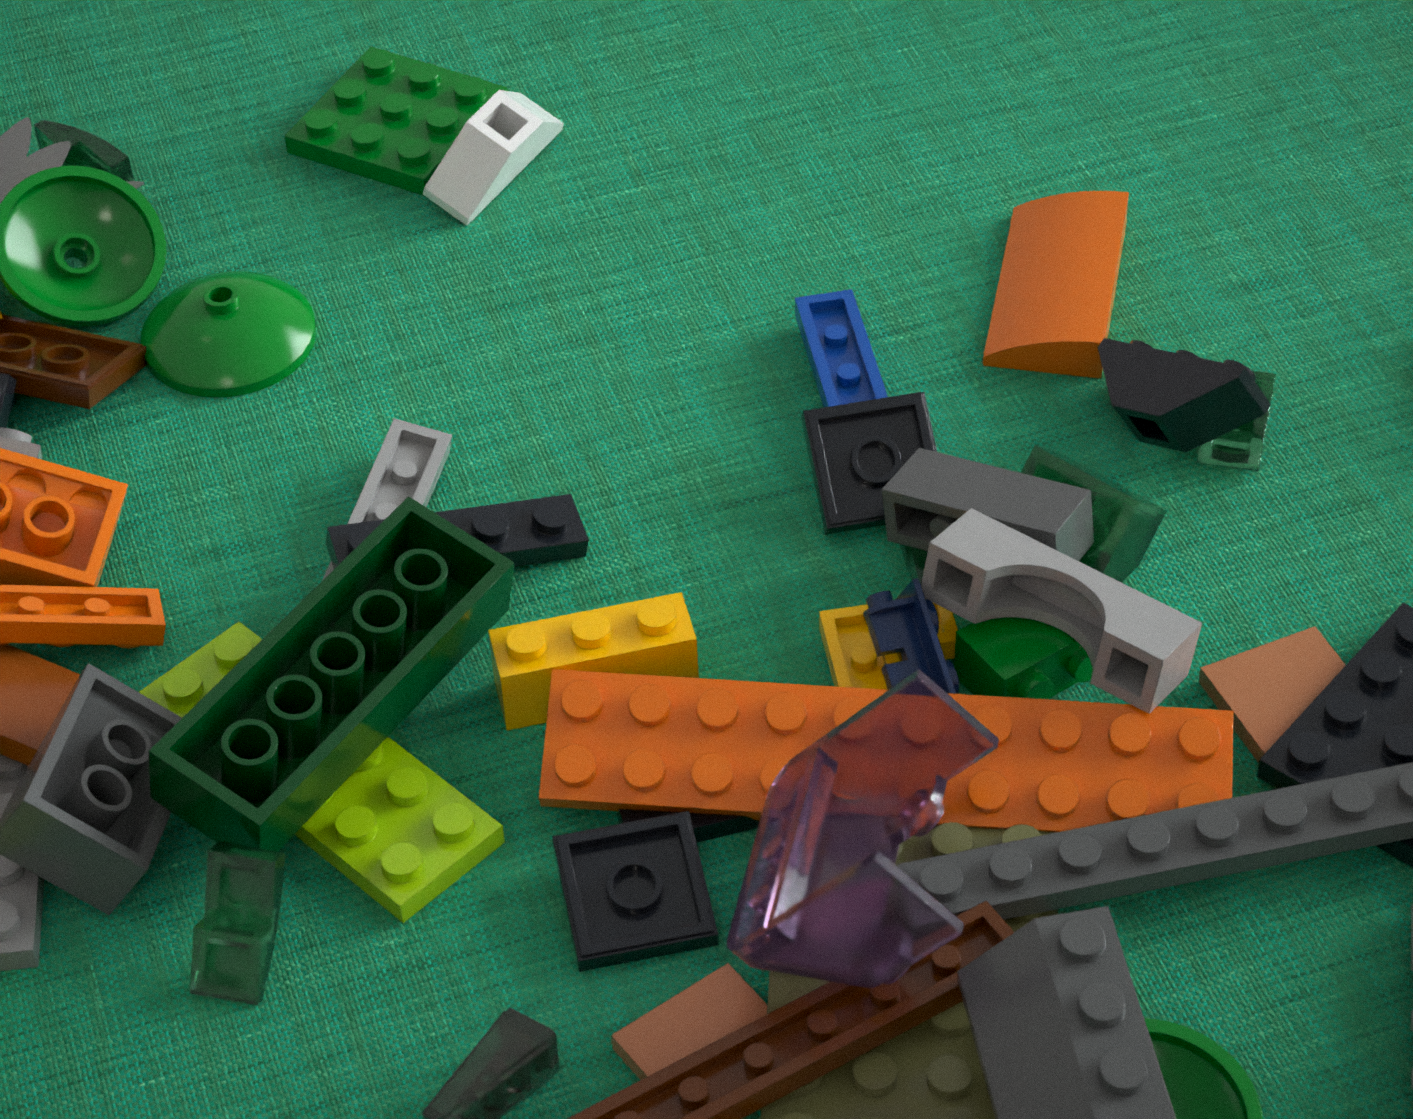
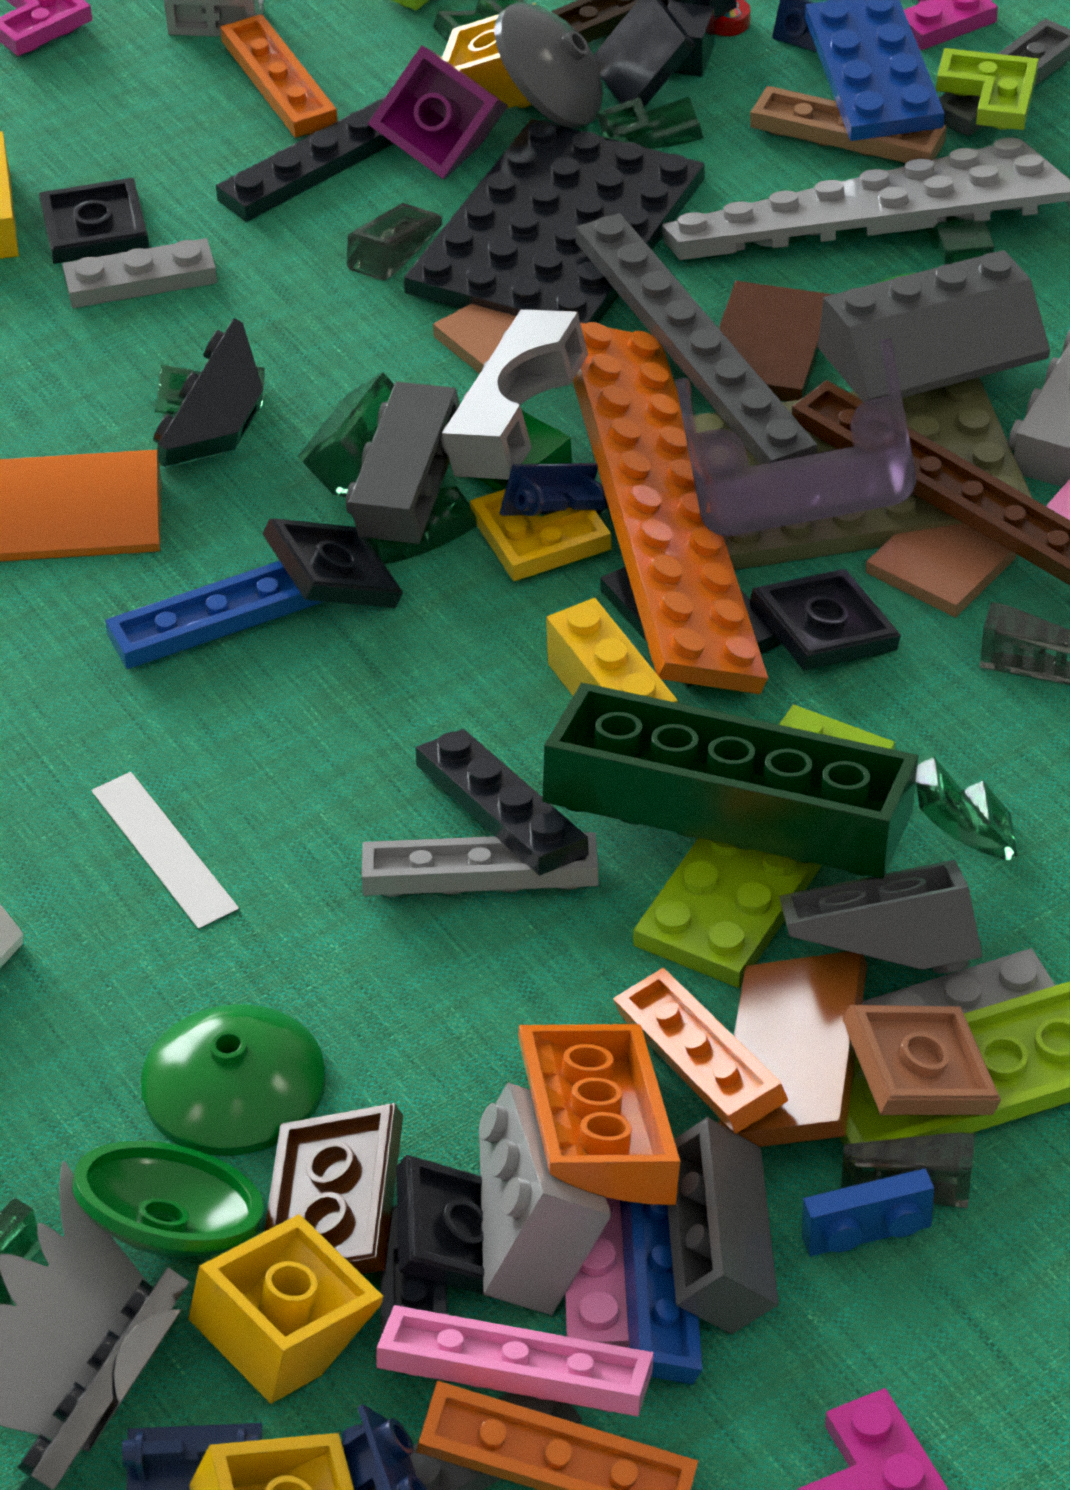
camera: 105 degrees left, 0 degrees up
(540, 323) = (165, 850): none -> white sticker
(1221, 969) = (775, 333): none -> reddish brown tile

